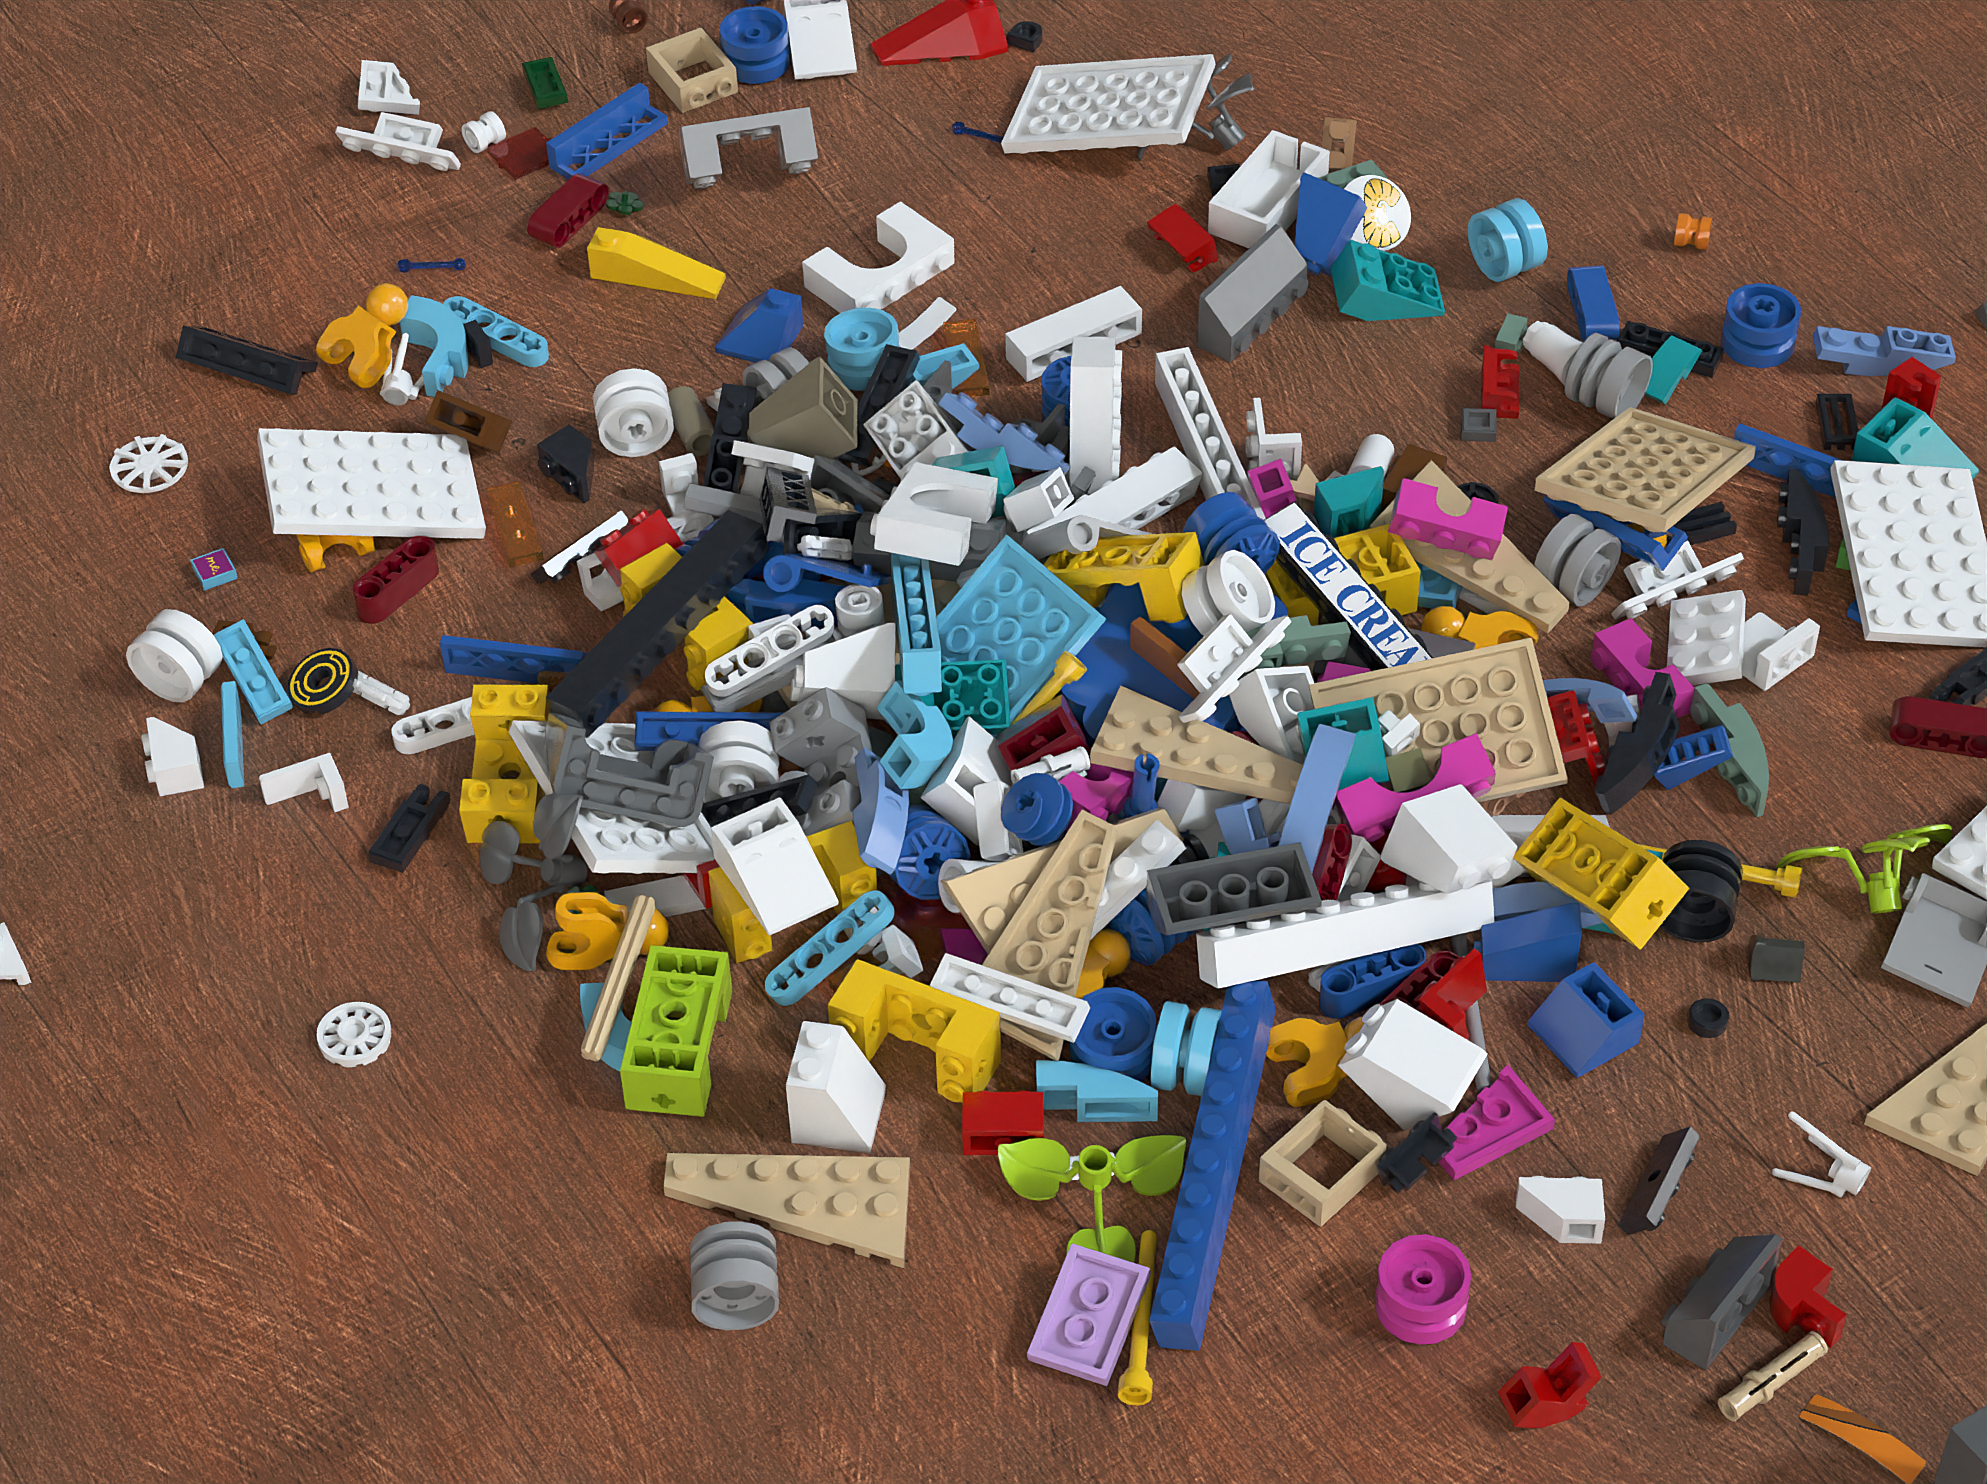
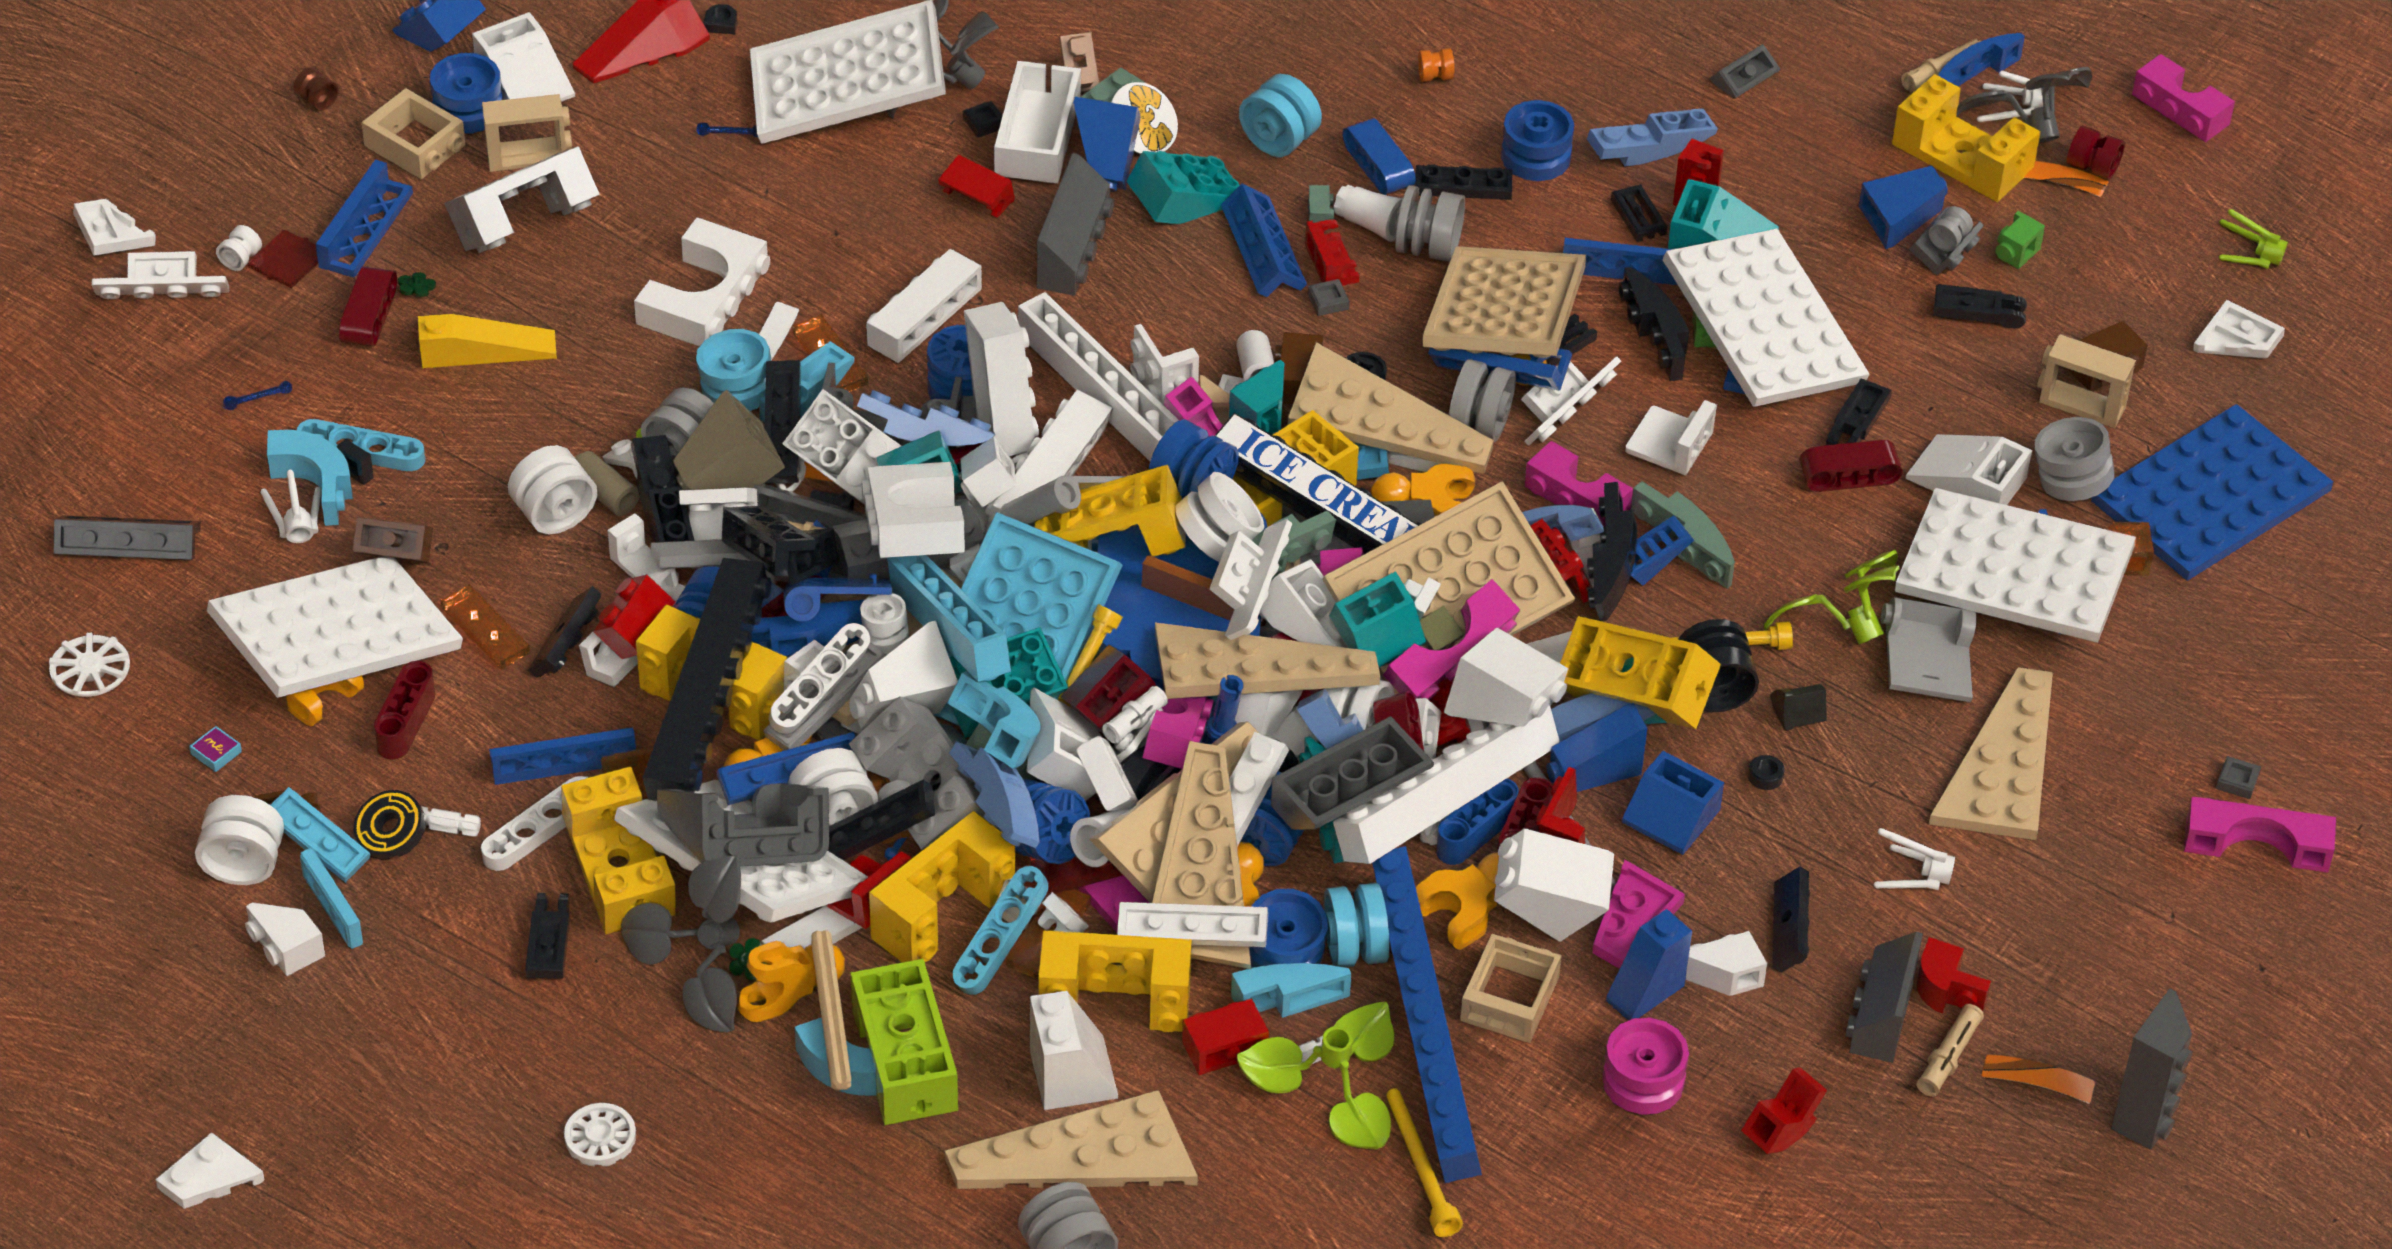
camera: 25 degrees left, 0 degrees up
(304, 777) = (433, 910): white bracket -> none
(366, 334) = (244, 478): light orange piece -> none
(544, 82) = (270, 182): dark green plate -> none
(569, 461) = (509, 553): black slope -> none
(763, 326) = (622, 375): blue slope -> none
(772, 866) = (933, 869): white slope -> none
(789, 68) = (521, 111): none -> tan window
(825, 548) = (822, 569): white axle -> none
(1037, 809) = (1145, 752): blue piece -> none
(1082, 484) = (1014, 446): dark grey tile -> none
(1089, 1314) = (1380, 1172): lavender plate -> none
(1317, 790) = (1380, 665): medium blue slope -> none
(1401, 1165) = (1578, 968): black hinge -> none
(1419, 518) = (1337, 397): dark pink arch -> none
(1430, 351) = (1262, 240): none -> blue fence
(1477, 1186) = (1652, 966): none -> blue slope
(1670, 365) = (1479, 194): teal slope -> none
(1708, 637) = (1619, 439): white plate -> none

